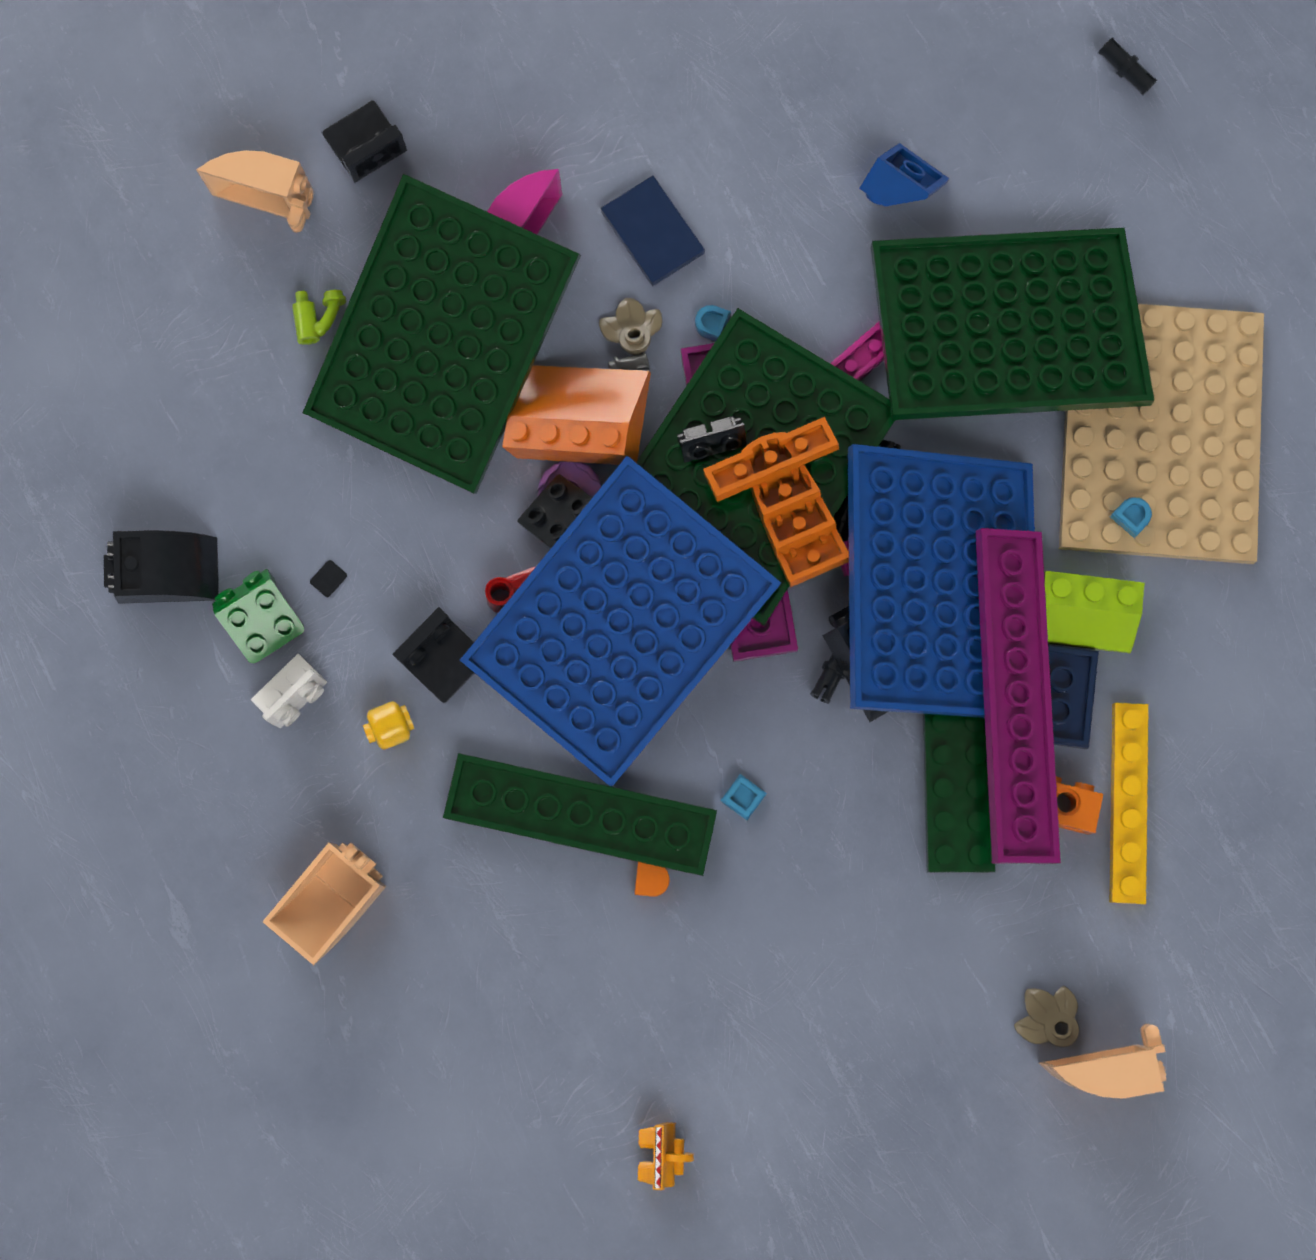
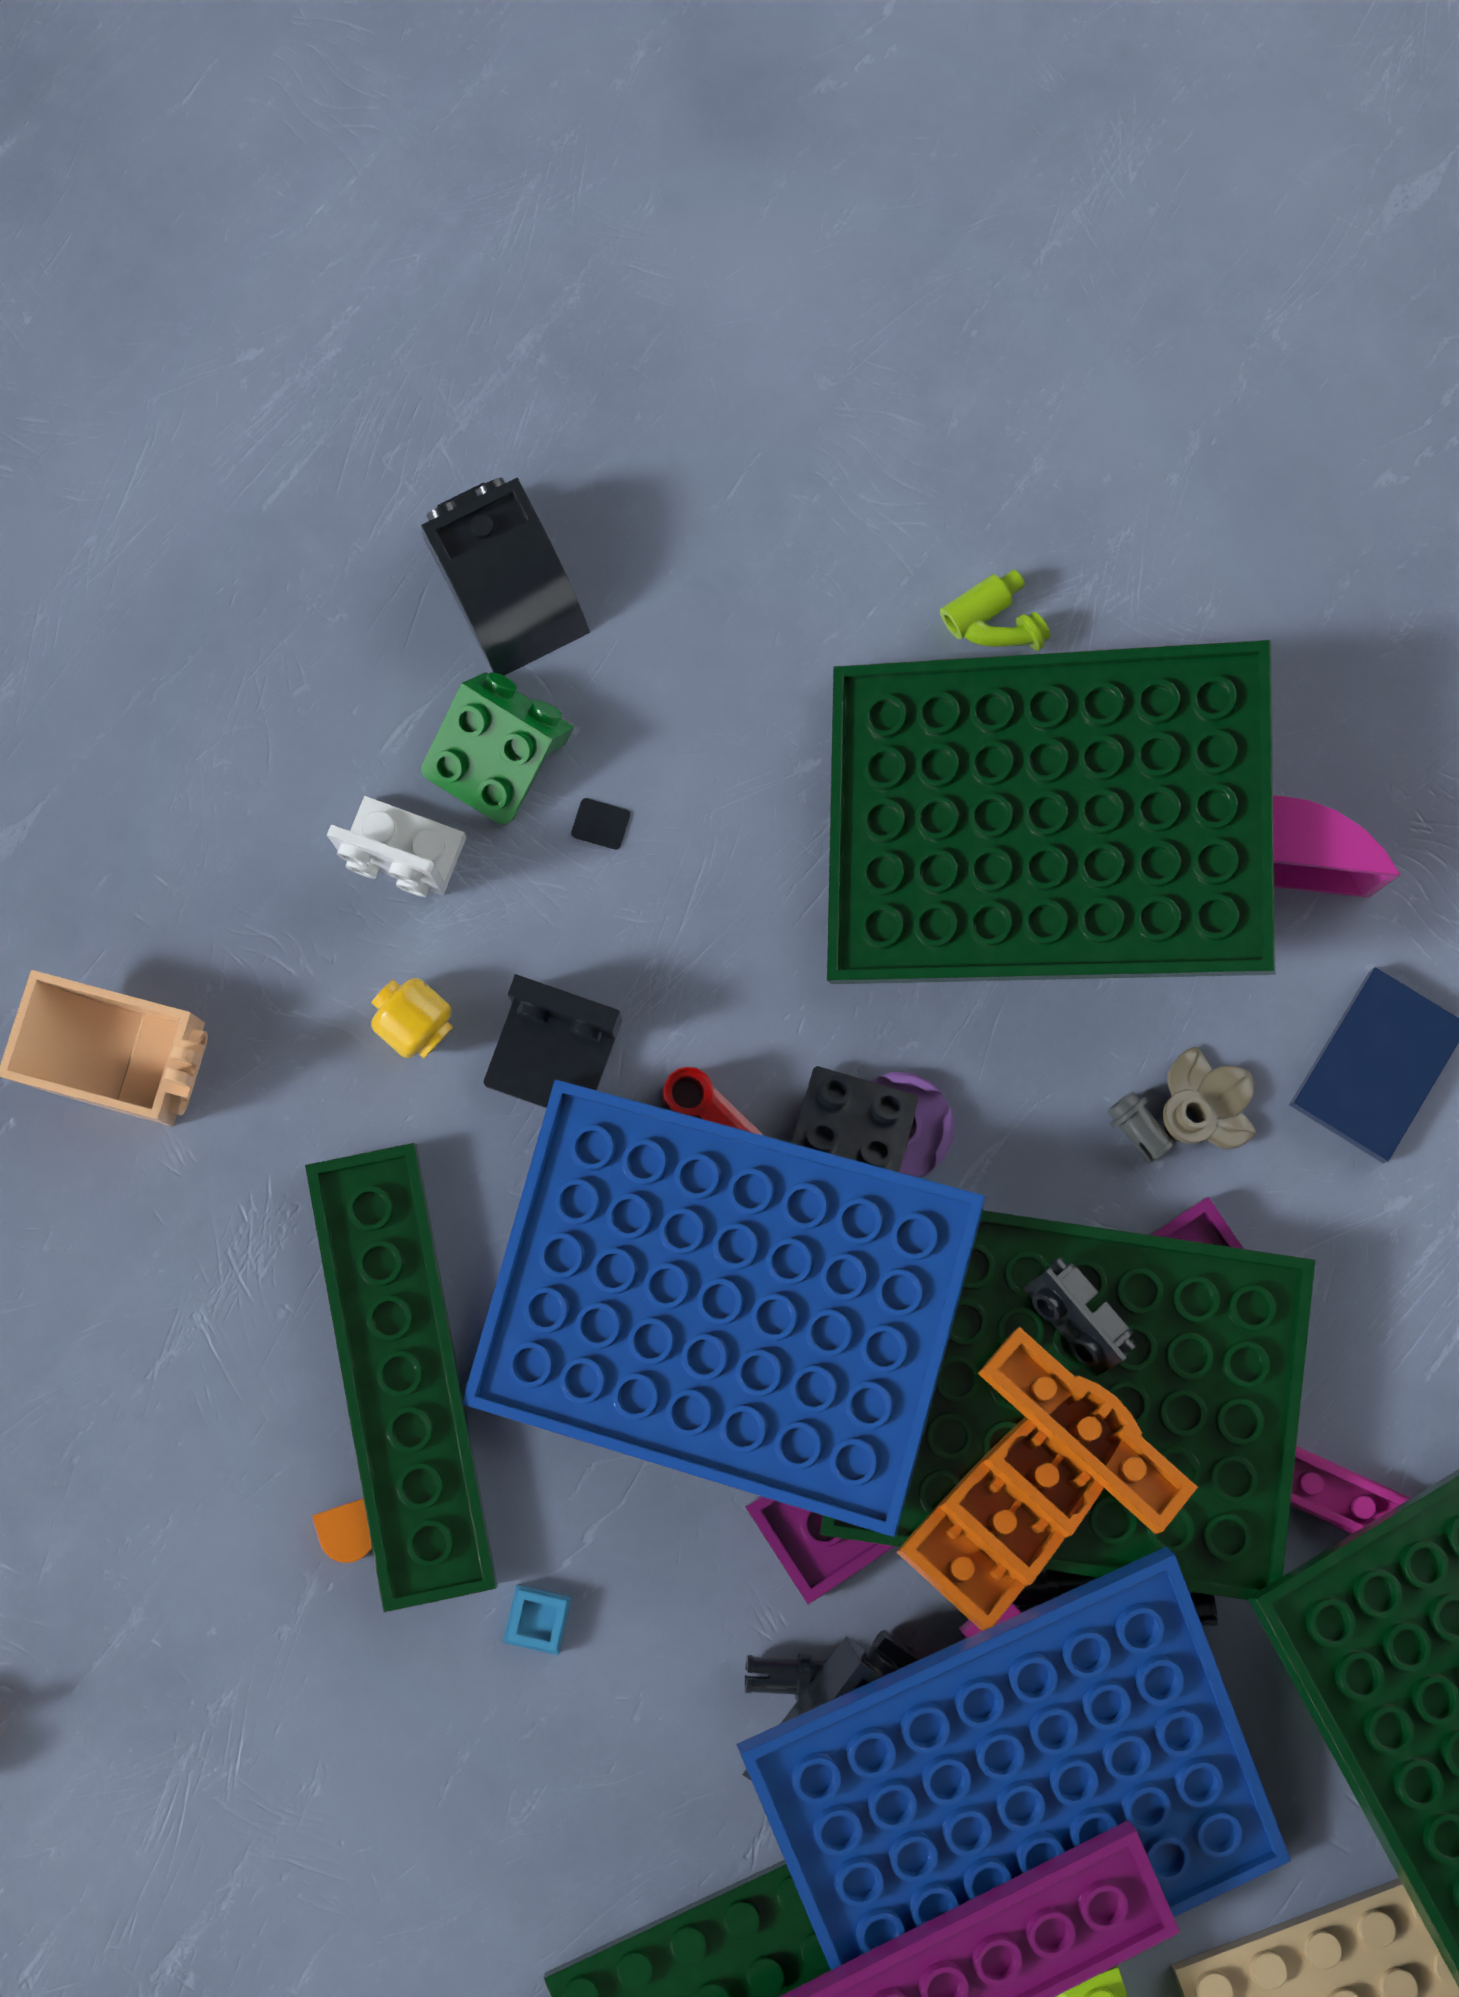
camera: 60 degrees right, 0 degrees up
(261, 183) = (1159, 441): light nougat piece -> none
(364, 141) = (1303, 560): black bracket -> none
(578, 415) = (1024, 1087): orange slope -> none
(711, 321) = (1276, 1226): dark azure tile -> none

